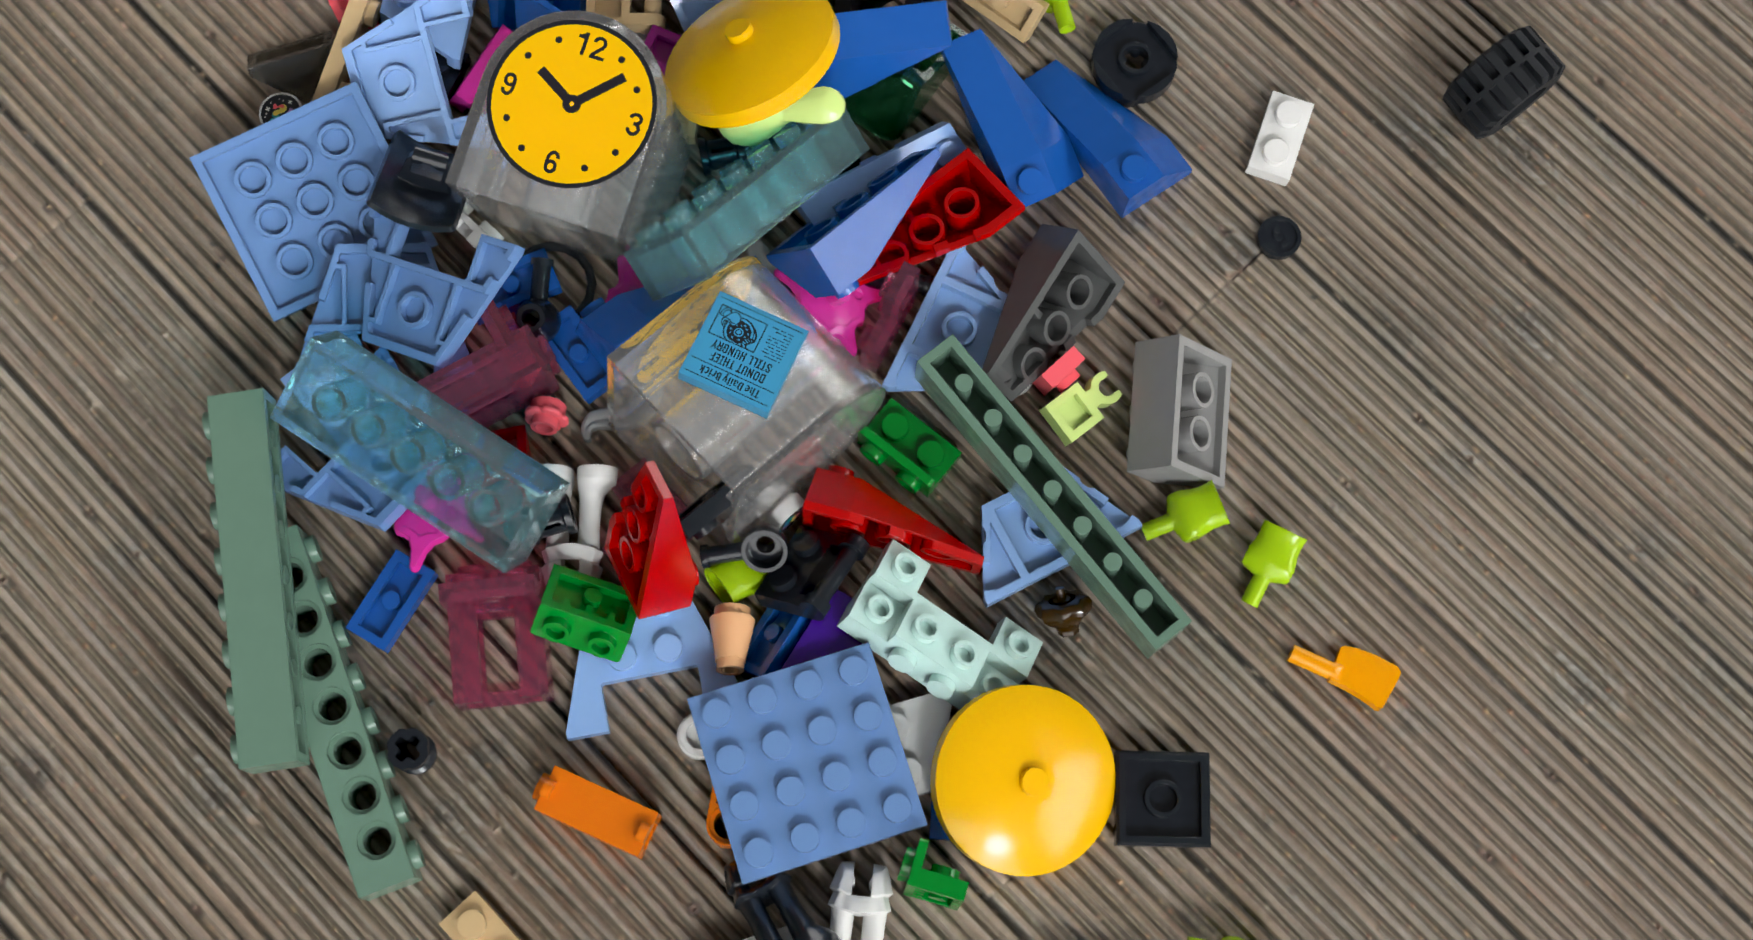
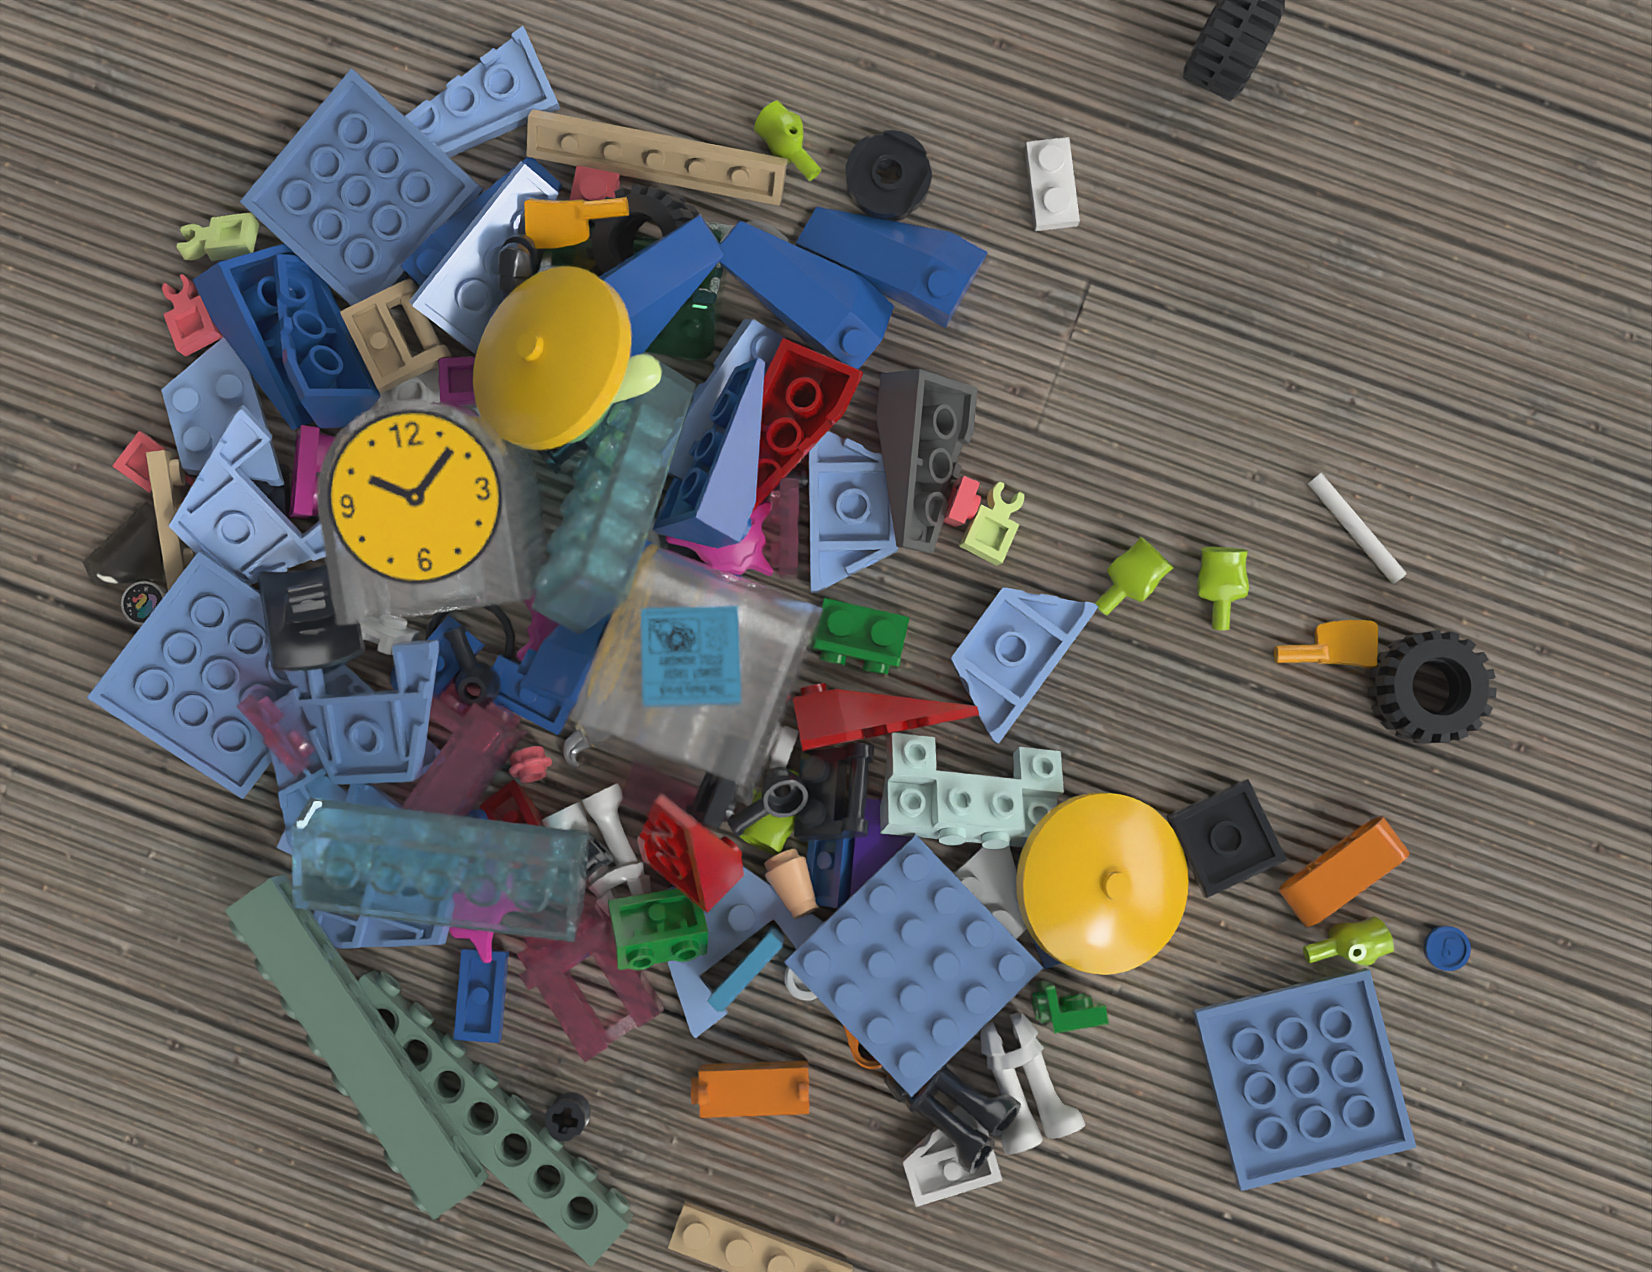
camera: 20 degrees left, 10 degrees up
(343, 278) = (290, 747): none -> clear pink plate
(648, 691) = (746, 969): none -> dark azure tile
(1051, 497) = (1012, 627): sand green brick -> none
(1064, 610) = (1065, 714): dark brown piece -> none
(1179, 412) = (1082, 488): light grey slope -> none
(1261, 885) = (1344, 871): none -> orange beam
(1278, 237) = (1093, 278): black piece -> none
(1422, 574) = (1357, 528): none -> white bar
(1460, 738) = (1466, 680): none -> black tyre

